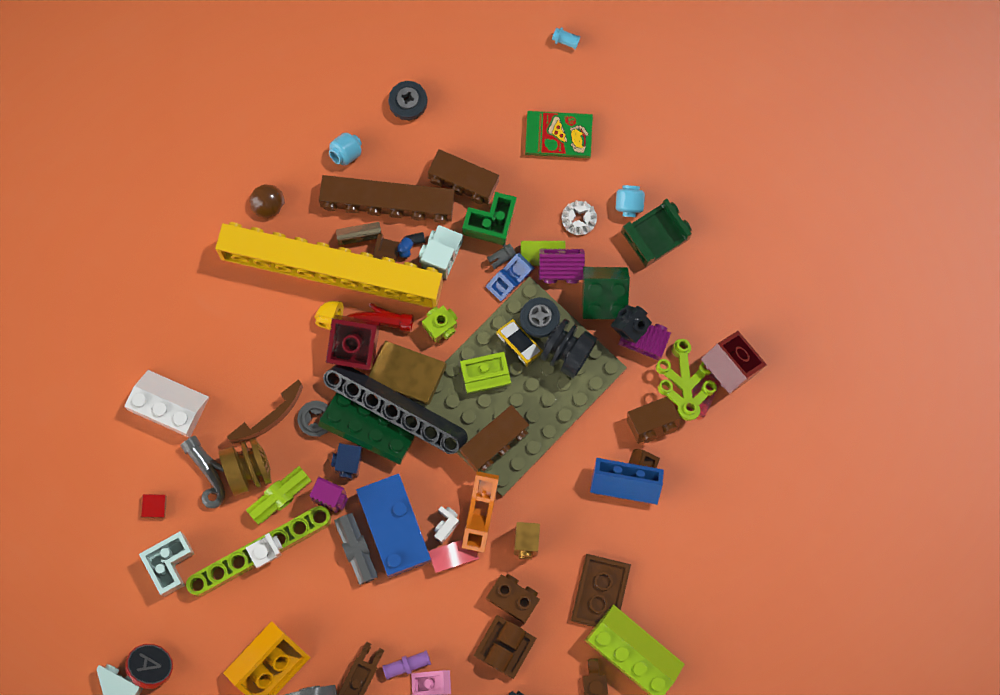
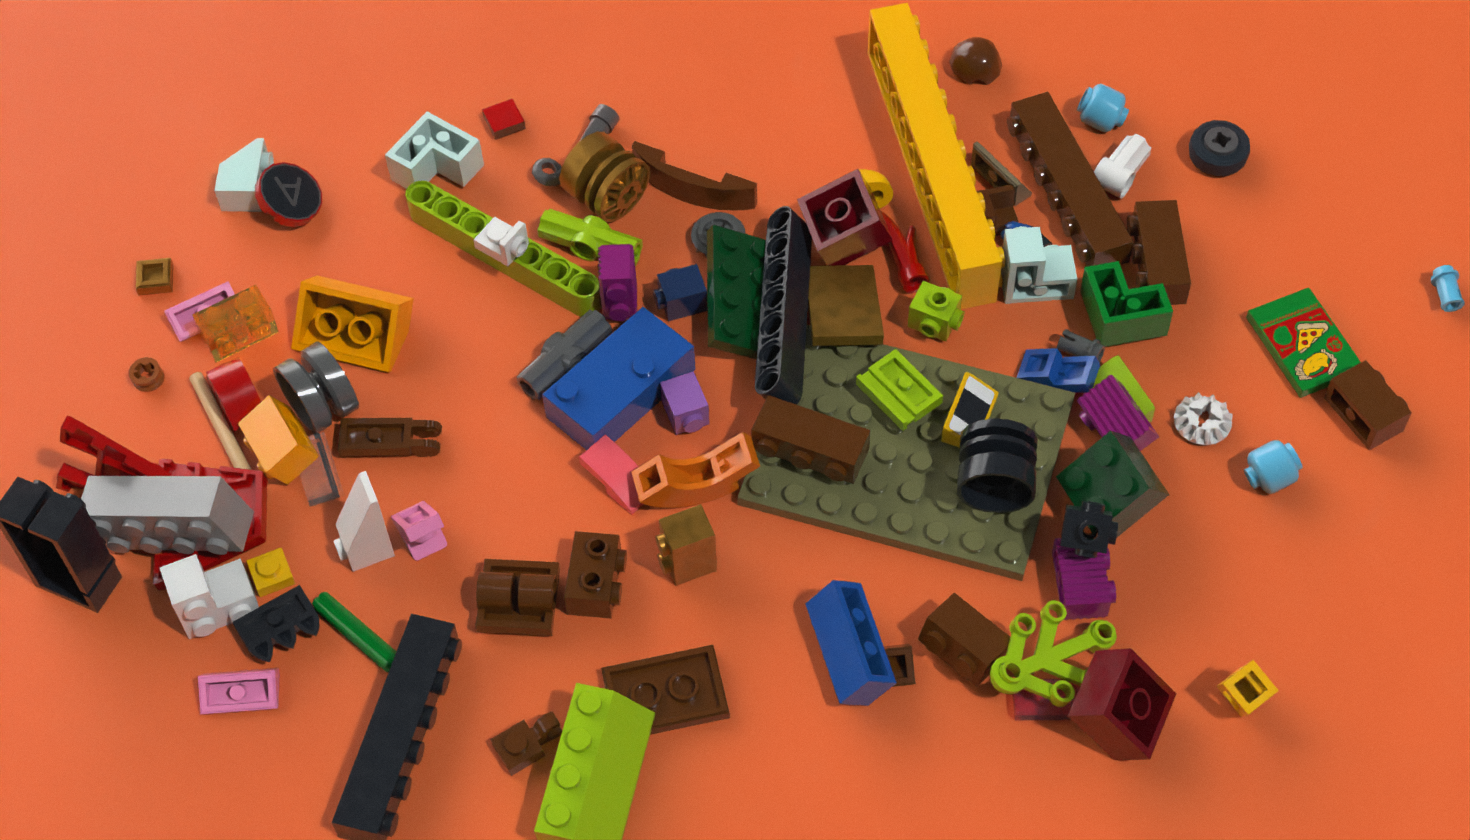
camera: 70 degrees right, 20 degrees down
(166, 403) = (644, 71): white slope -> none
(394, 166) = (1119, 170): none -> white piece
(406, 665) = (431, 485): medium lavender pin -> none
(427, 495) = (685, 403): none -> medium lavender brick
(444, 529) = (648, 444): white bracket -> none
(539, 309) = (1026, 408): black wheel -> none
(617, 127) = (1367, 404): none -> reddish brown brick
(657, 232) = (1249, 526): dark green panel -> none
(752, 294) = (1247, 688): none -> yellow brick

